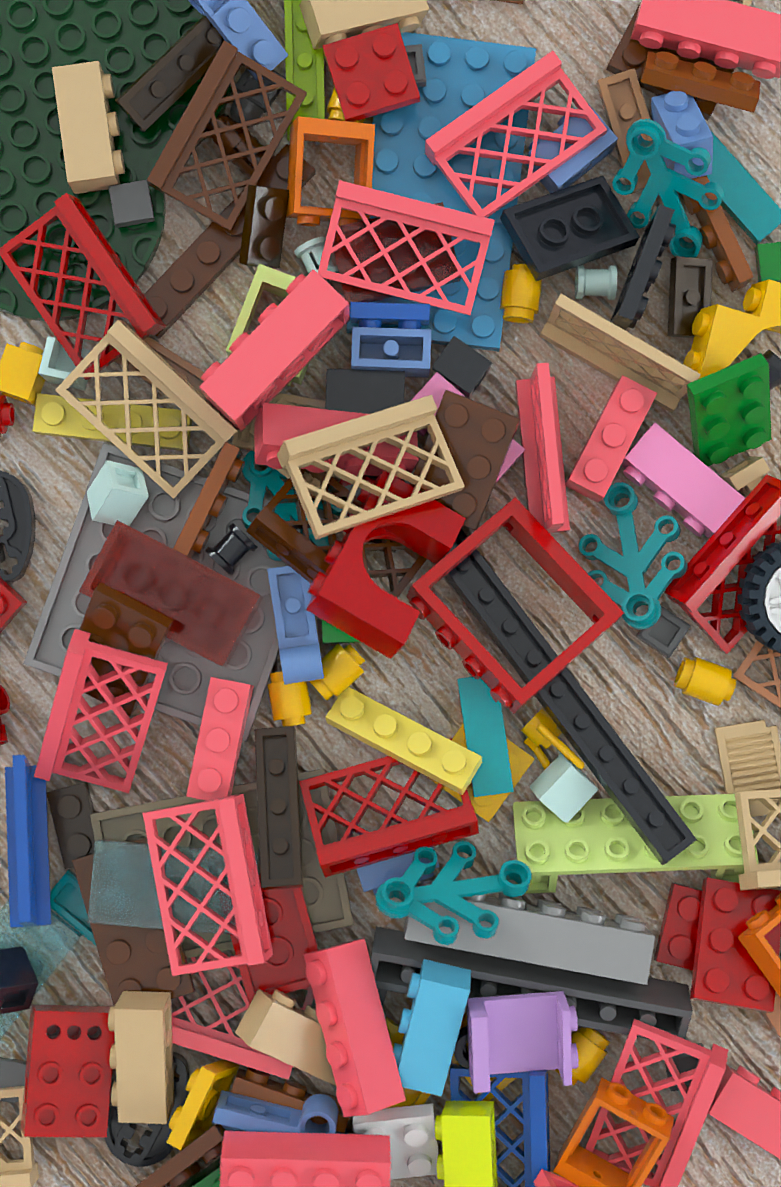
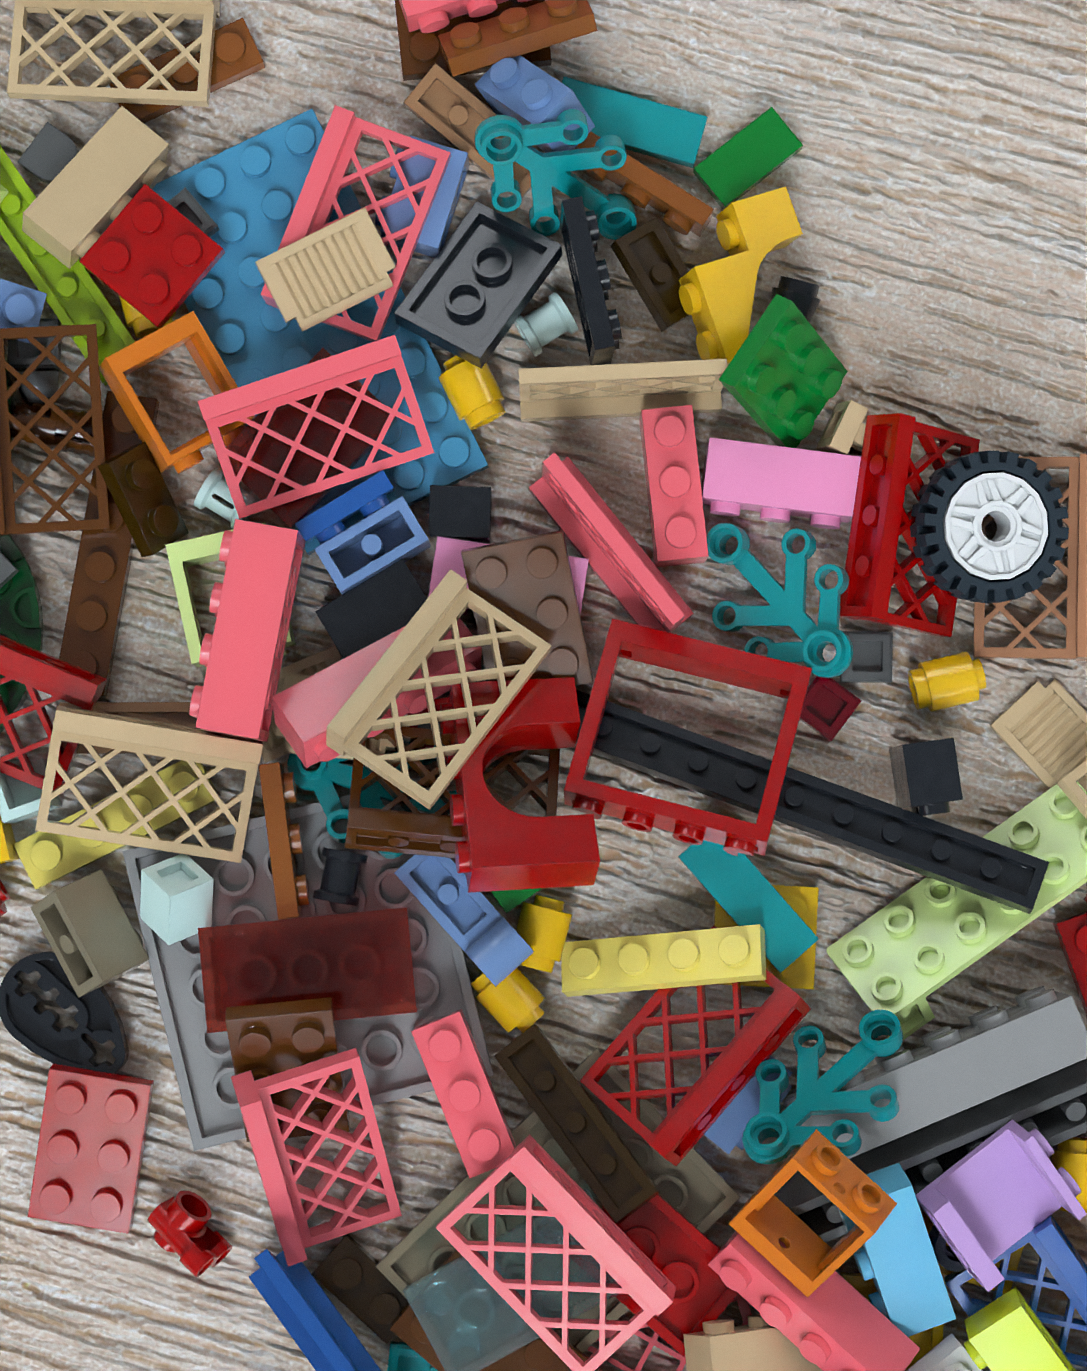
camera: 30 degrees left, 0 degrees up
(48, 480) = (90, 932): none -> dark tan brick
(370, 992) = (807, 1258): none -> orange window
(478, 153) = (328, 270): none -> tan window
(544, 731) = (809, 851): yellow plant -> none
(563, 788) = (870, 899): light aqua panel -> none
(617, 646) = (827, 707): none -> dark red tile
(653, 731) = (926, 776): none -> black brick

